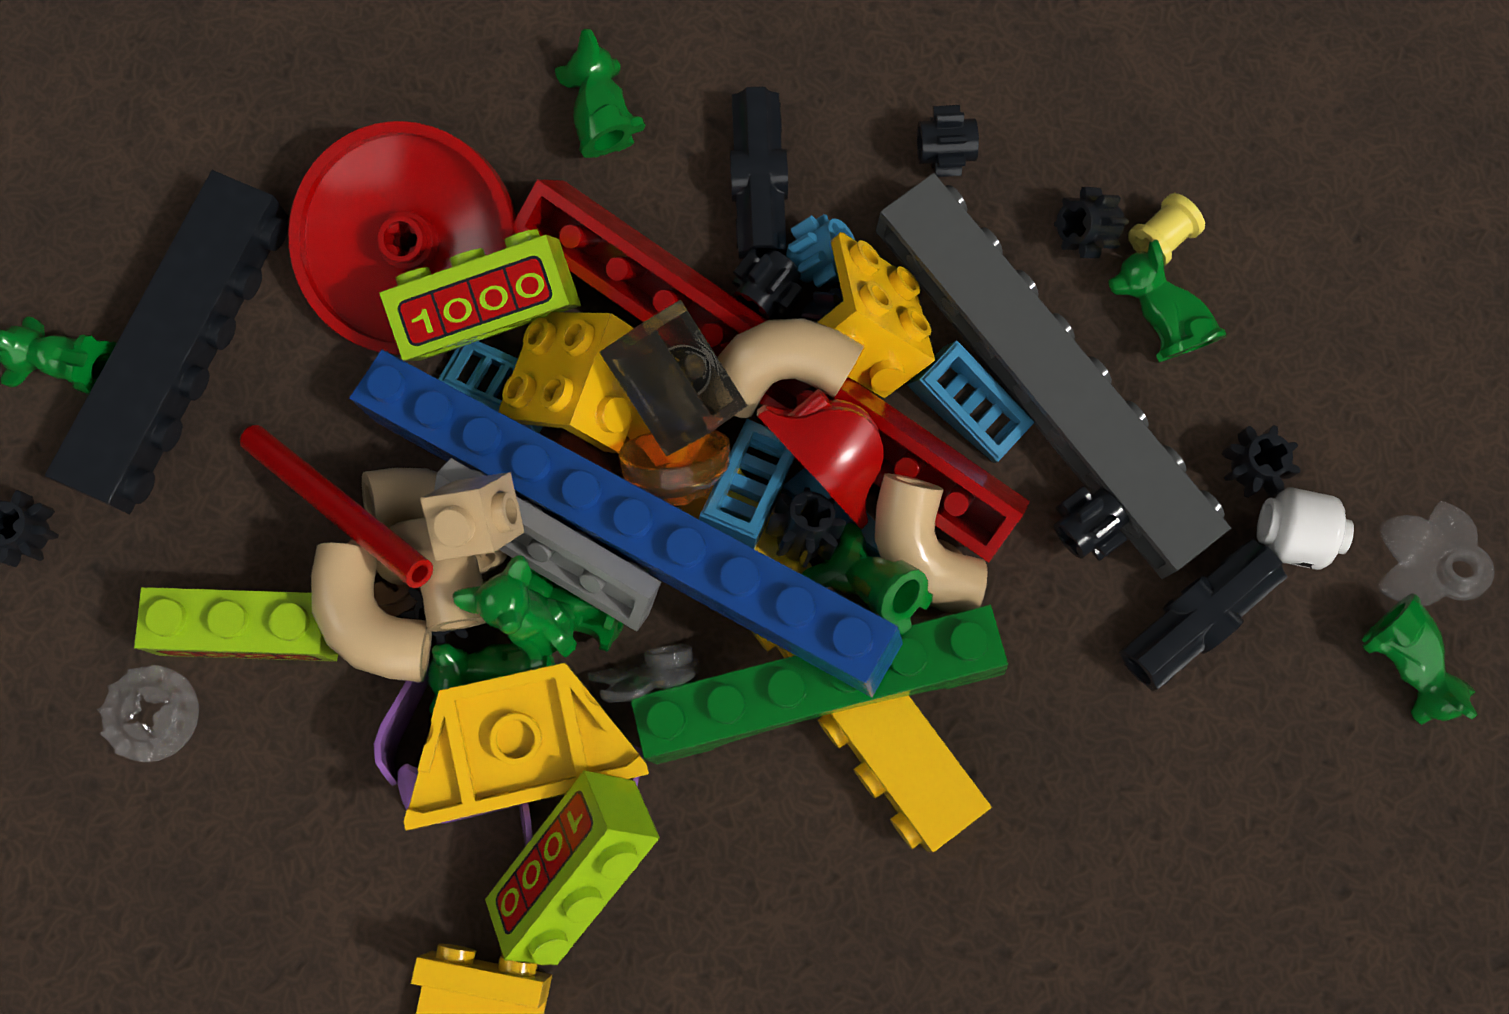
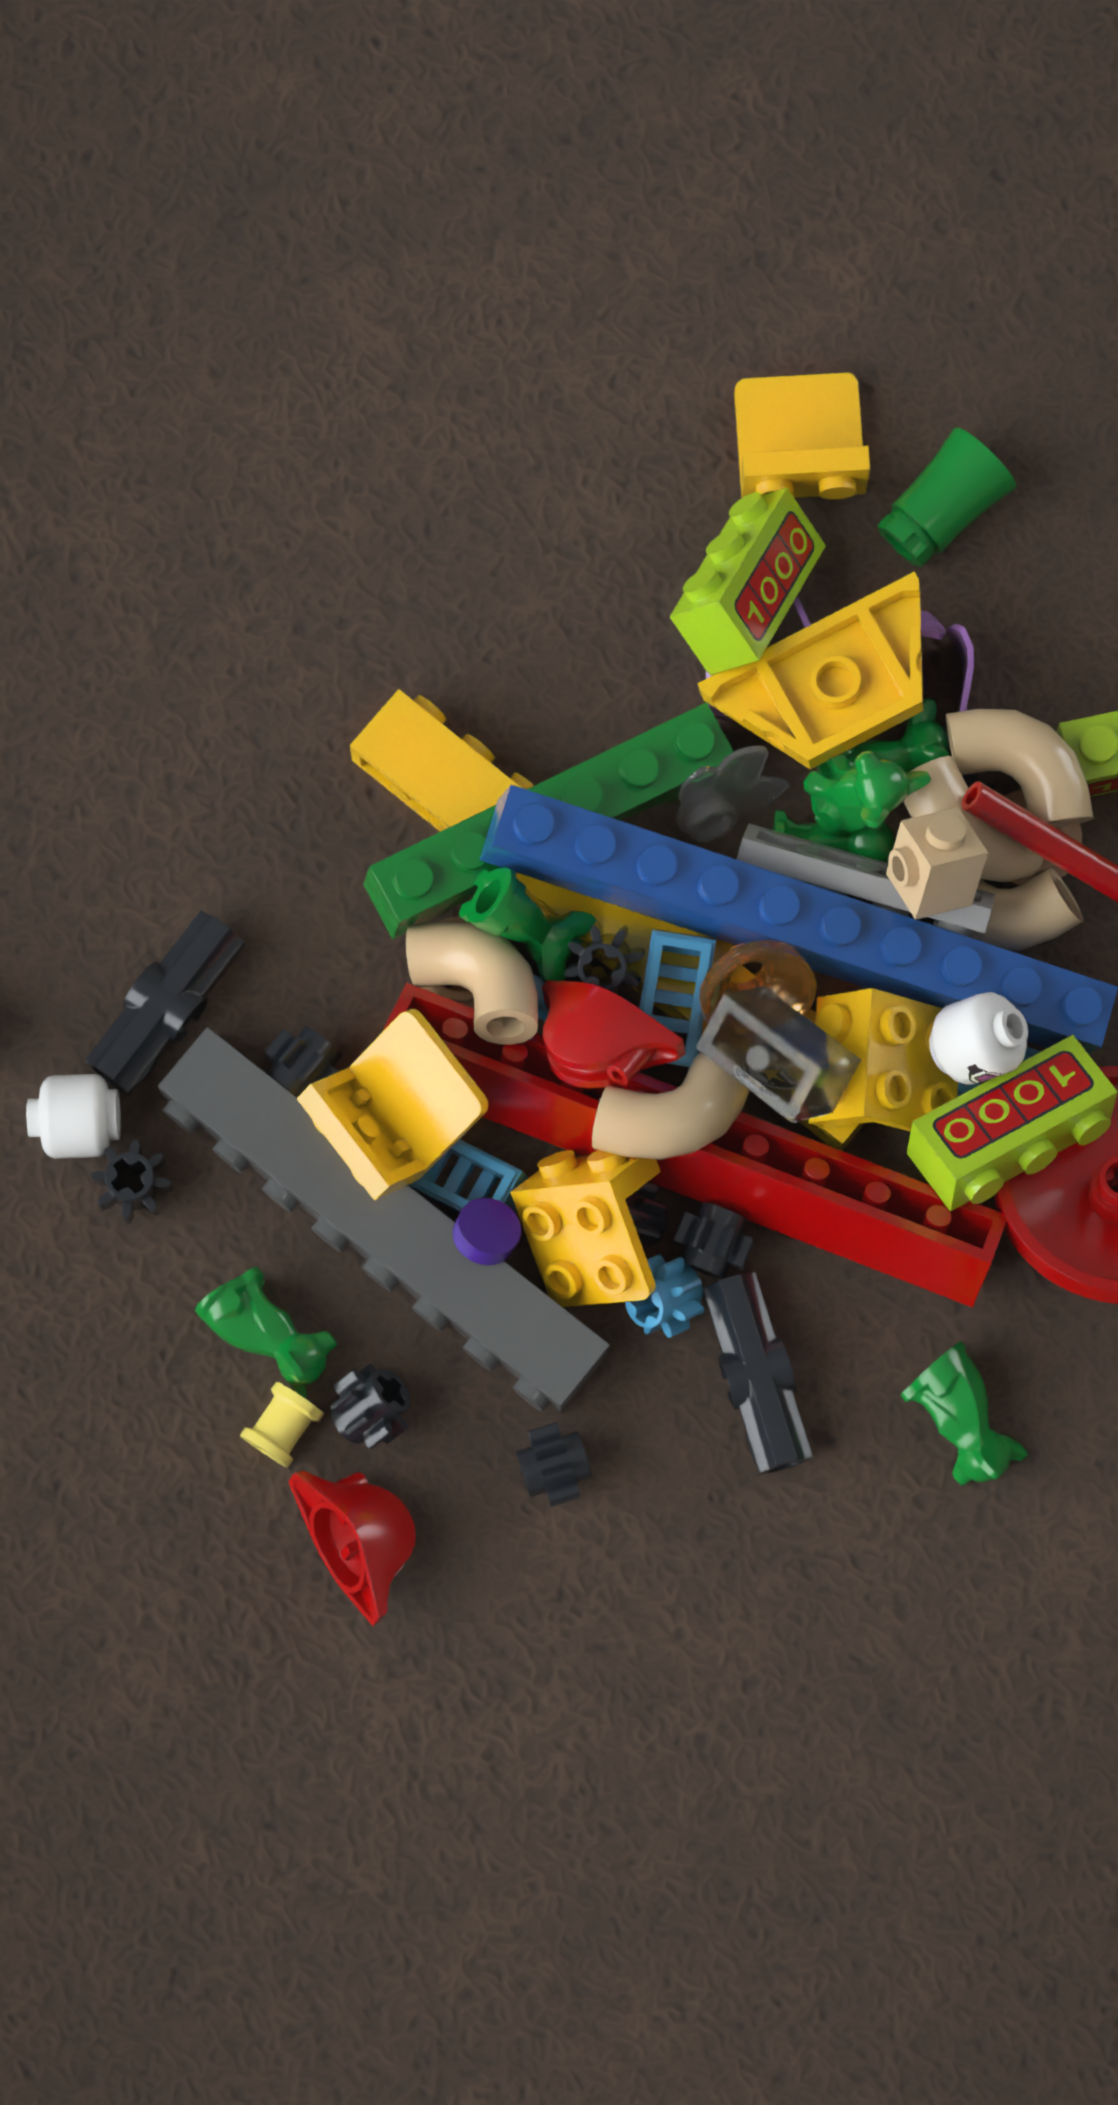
camera: 170 degrees right, 0 degrees up
(354, 920) = (945, 498): none -> green plant
(486, 363) = (978, 1038): none -> white head
(965, 324) = (486, 1231): none -> dark purple tile
(1032, 439) = (396, 1106): none -> yellow bracket
(1114, 126) = (359, 1534): none -> red hat

